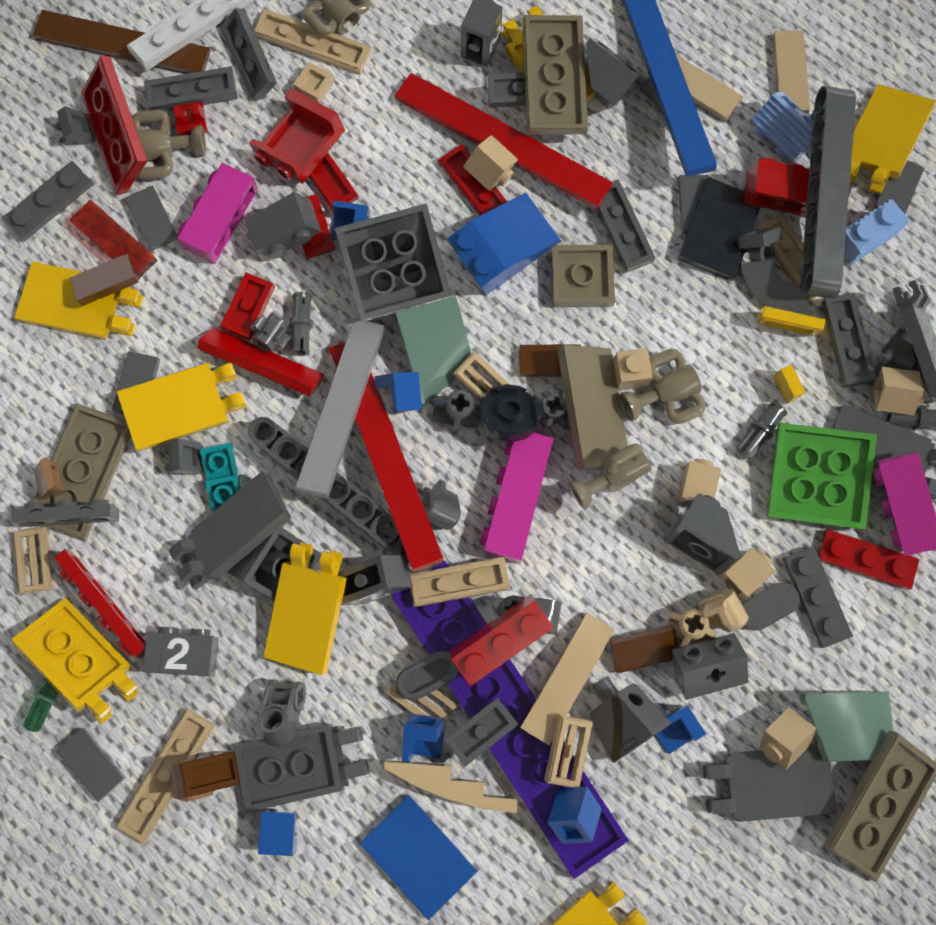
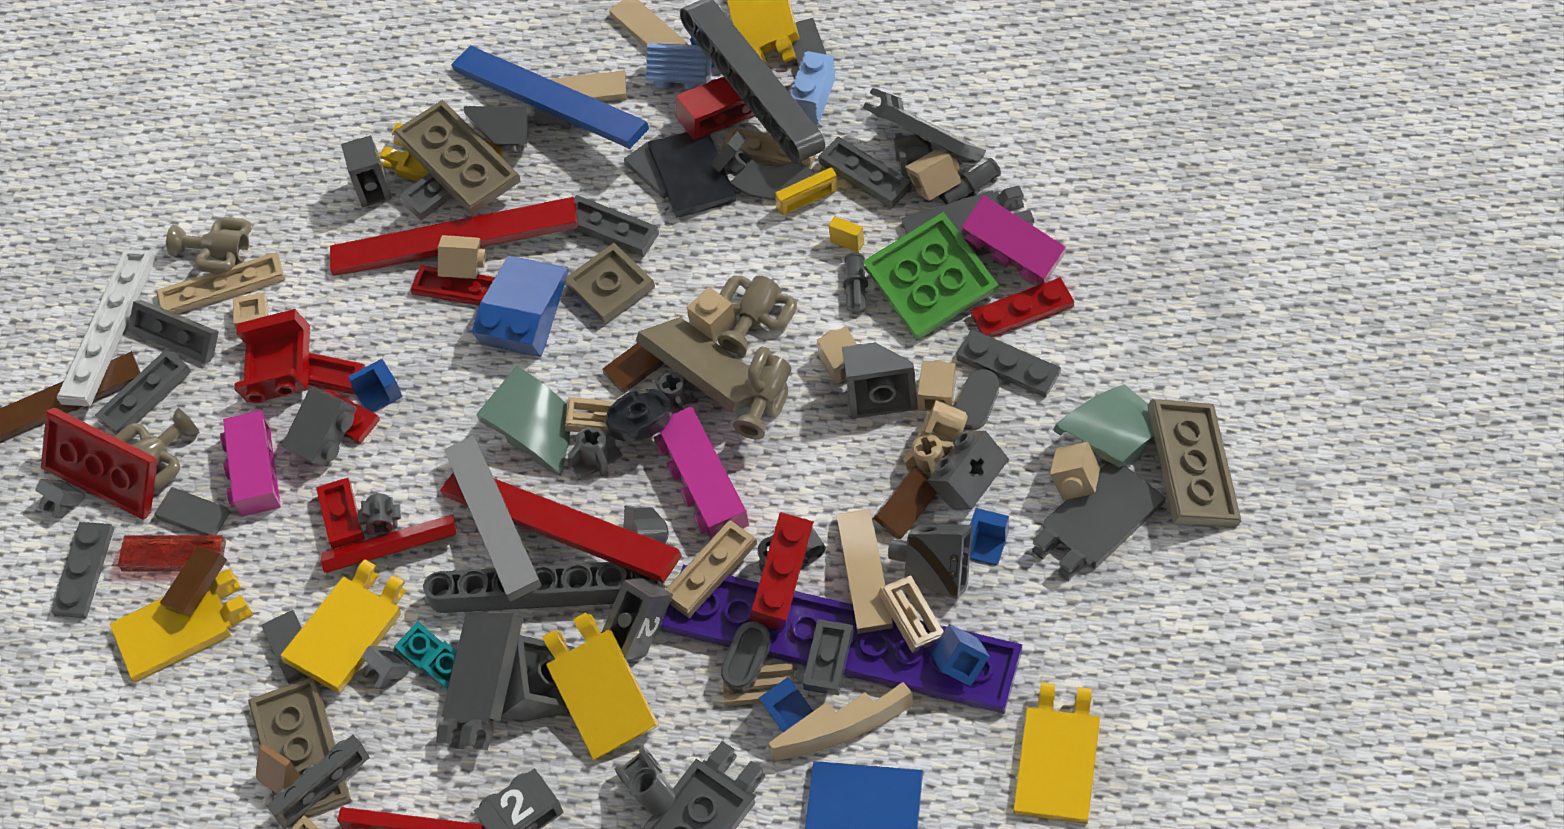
camera: 30 degrees left, 20 degrees down
(188, 117) = (158, 415): red tile -> none
(300, 323) = (400, 491): dark grey pin -> none
(393, 261) = (439, 379): dark grey slope -> none
(404, 390) = (534, 466): blue panel -> none

